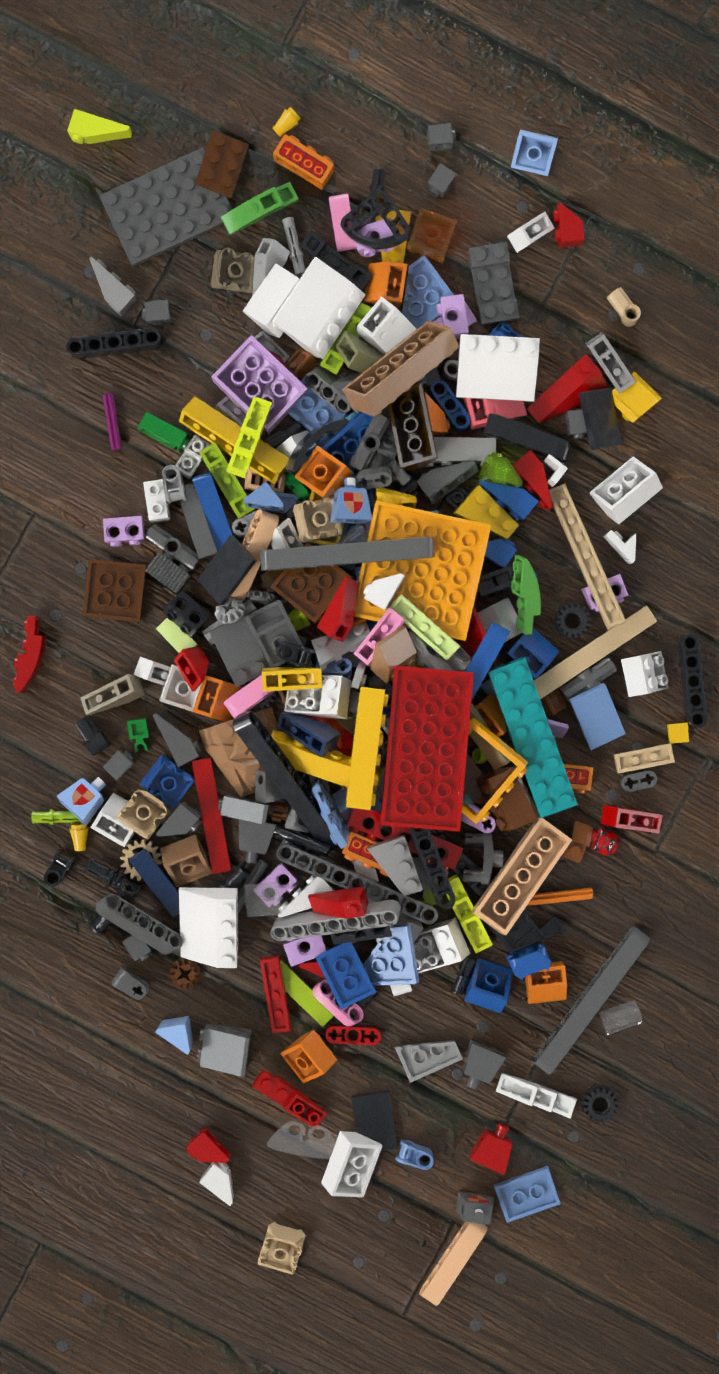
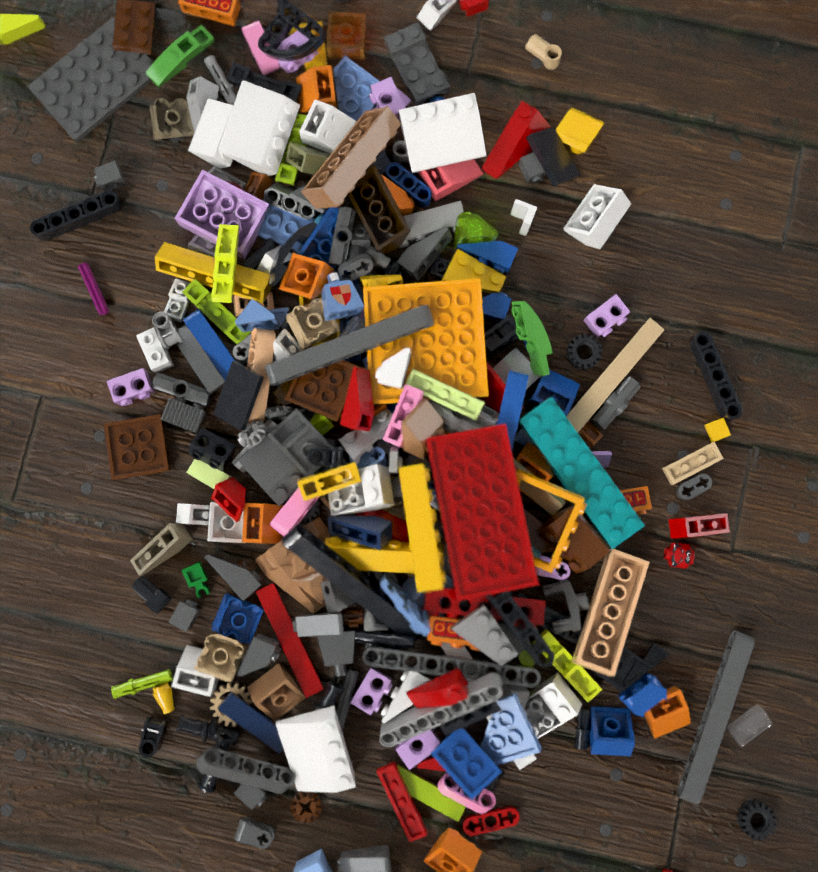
camera: 15 degrees left, 5 degrees down
(29, 663) = (71, 541): red slope -> none
(83, 799) = (158, 659): light blue torso -> none
(115, 293) = (65, 169): light grey slope -> none
(163, 432) = (144, 284): green window -> none
(262, 899) = (362, 709): clear piece -> none
(299, 490) = (284, 298): green plate -> none
(427, 1057) = (571, 822): light grey wing -> none
(475, 756) = (530, 507): lime hinge -> none
(481, 1063) = (627, 813): dark grey torso -> none
(527, 437) = (487, 191): black beam -> none
(533, 475) = (509, 229): red slope -> none
(536, 1095) = (691, 829): white slope -> none
(561, 896) = (655, 620): orange axle -> none
(581, 838) = (657, 557): dark orange slope -> none
(586, 557) = (580, 287): tan tile -> none
(597, 716) = (635, 435): medium blue tile -> none
(610, 362) = (546, 103): light grey slope -> none
(625, 550) = (612, 271): white slope -> none
(645, 674) = (668, 382): white slope -> none

